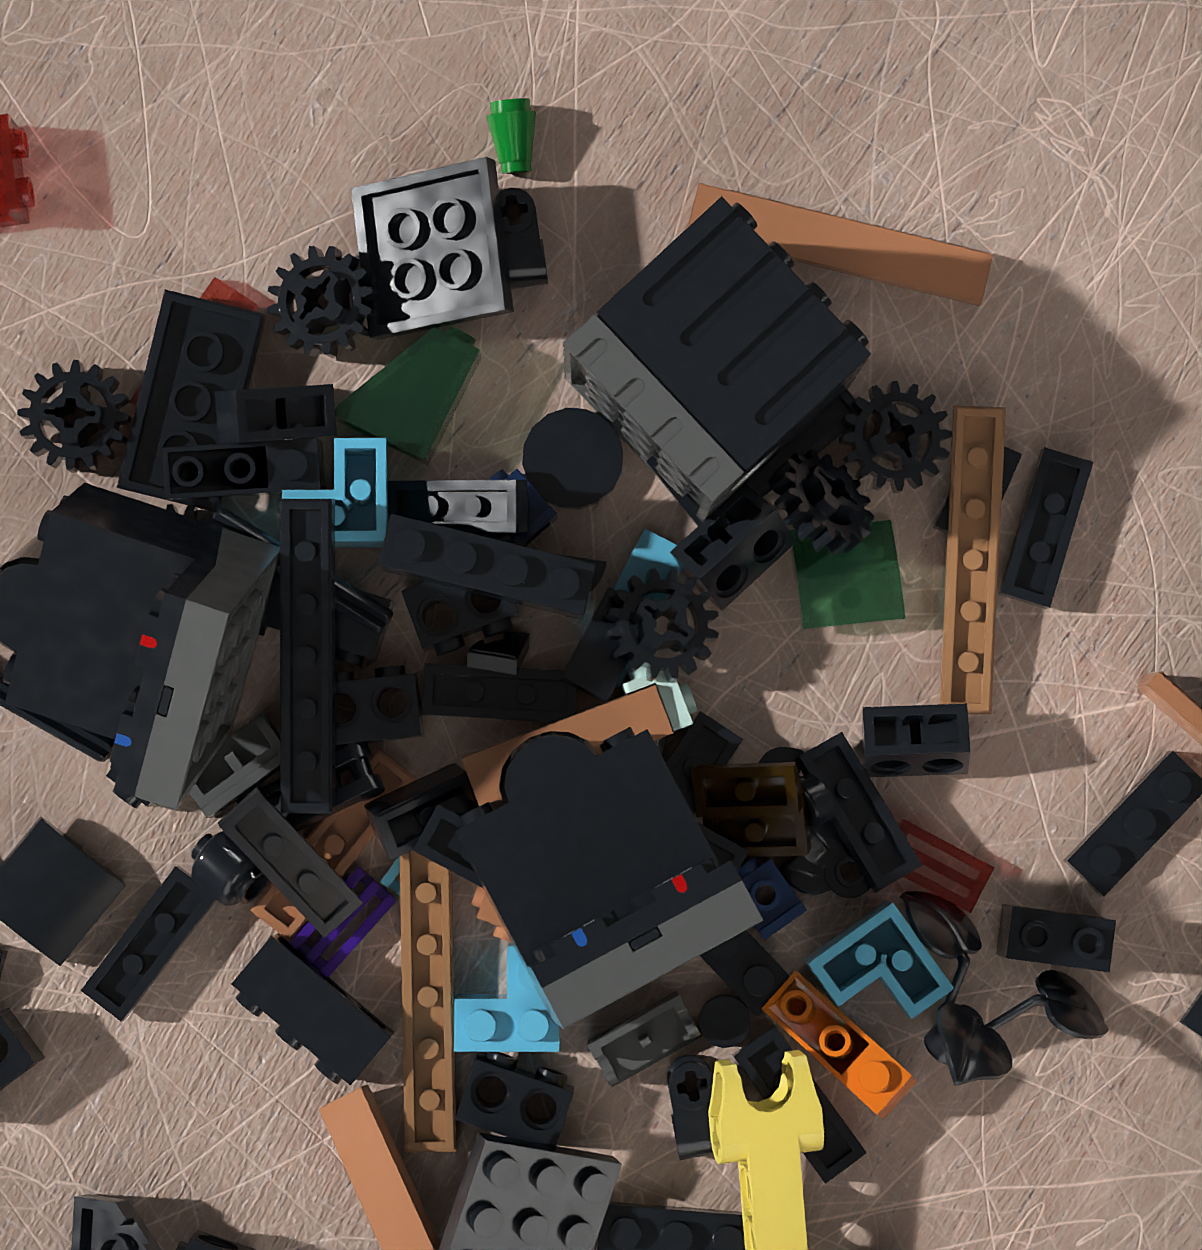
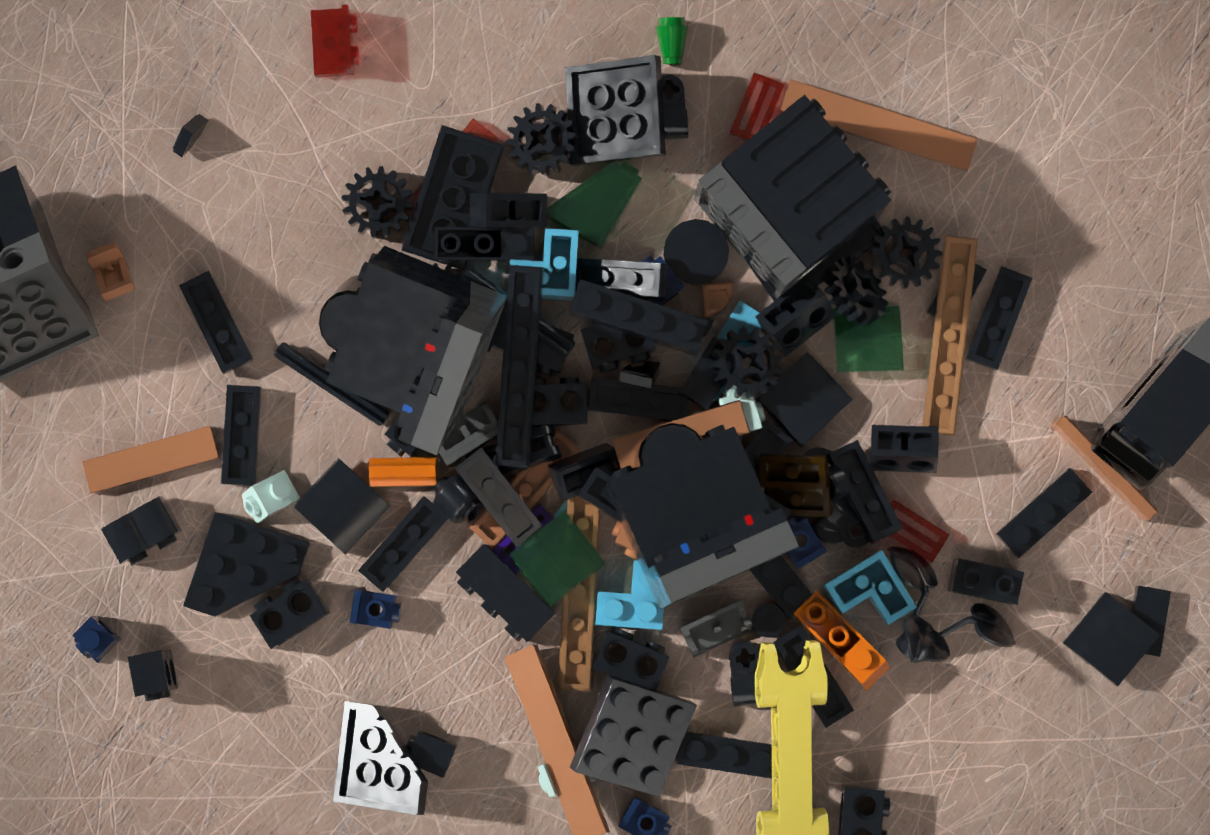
camera: 10 degrees right, 0 degrees up
(88, 1044) = (361, 609): none -> dark blue brick
(141, 831) = (403, 471): none -> orange axle
(388, 951) = (557, 559): none -> clear green slope
(608, 527) = (716, 297): none -> nougat tile
(664, 191) = (767, 82): none -> clear red tile
(756, 674) = (804, 399): none -> black slope

